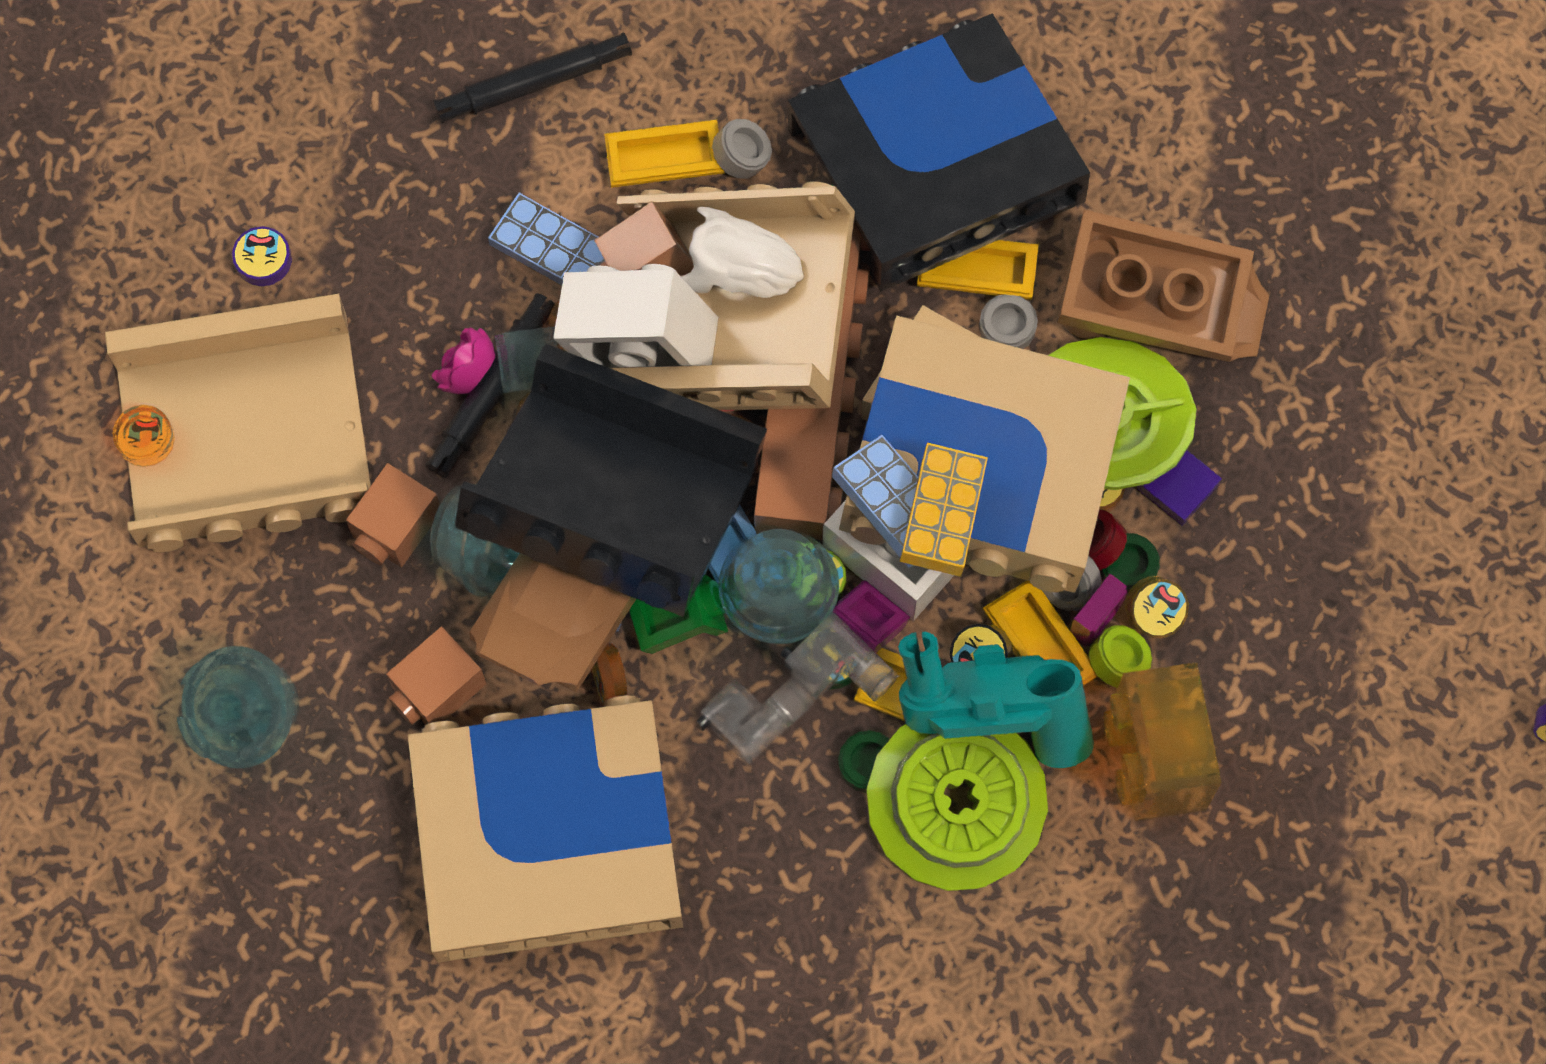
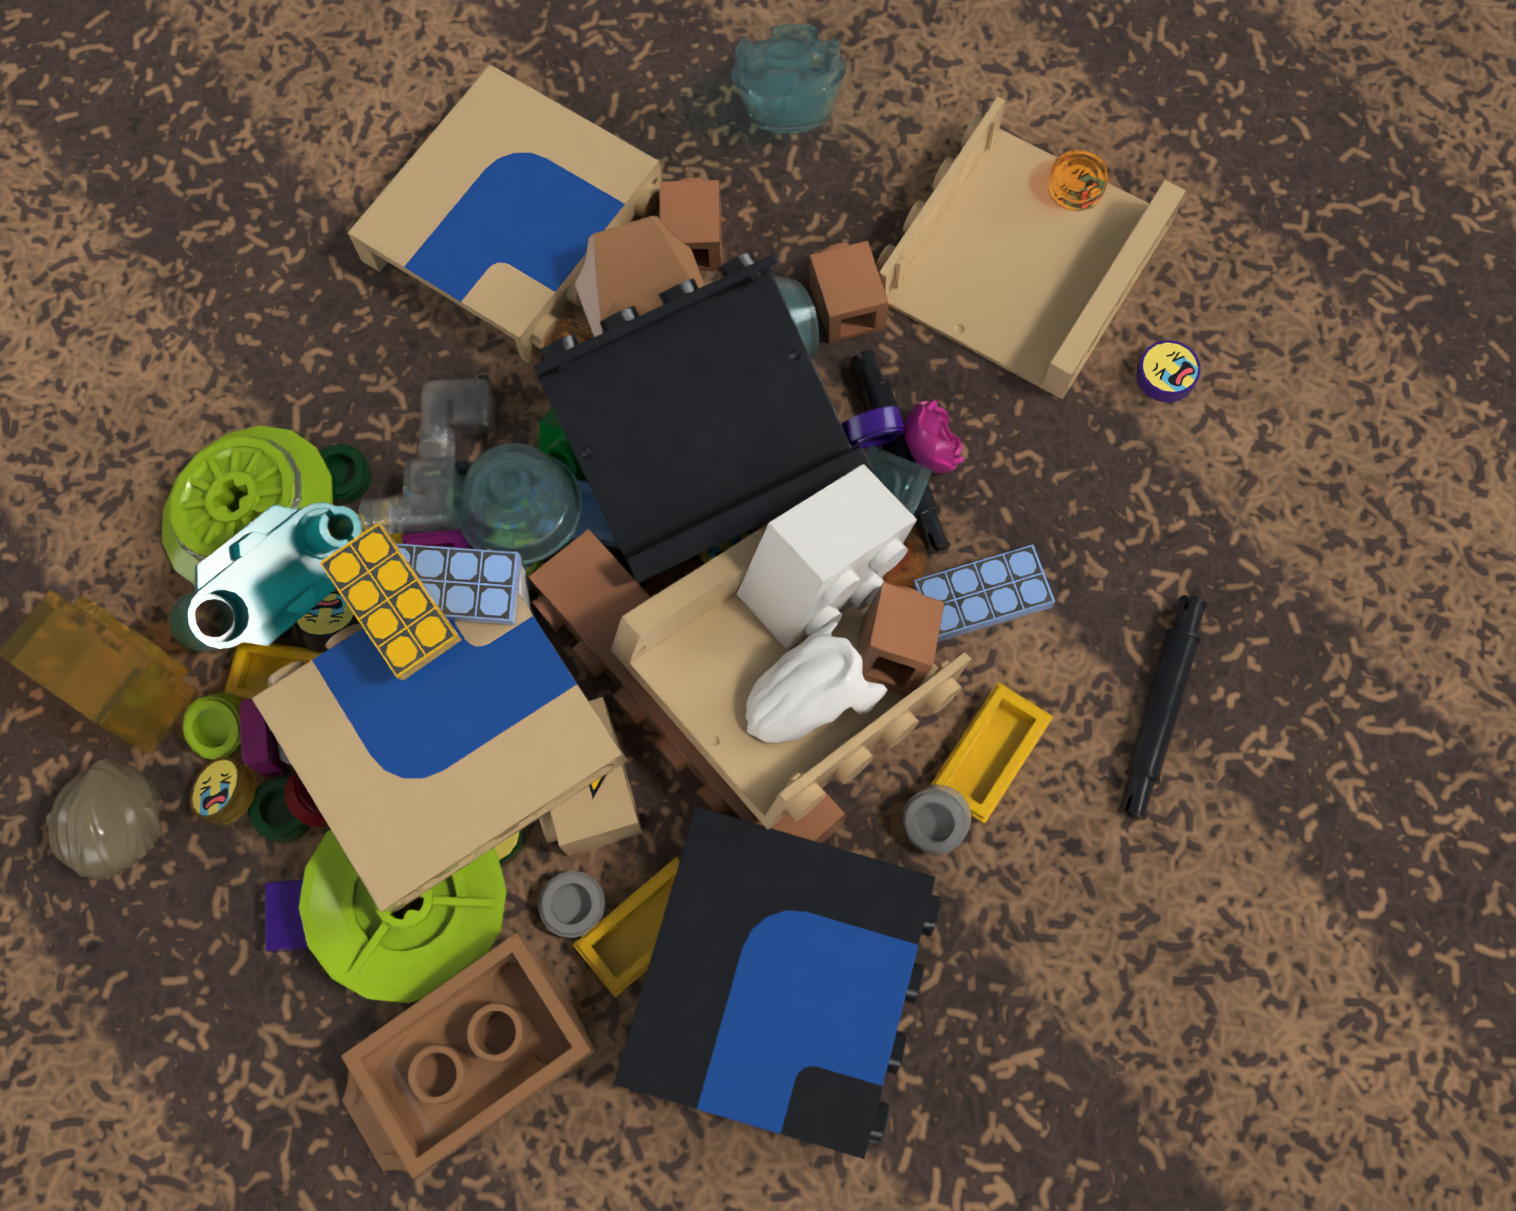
camera: 135 degrees right, 0 degrees up
(498, 394) = (874, 427): none -> dark purple tile
(1249, 667) = (105, 820): none -> dark tan hair

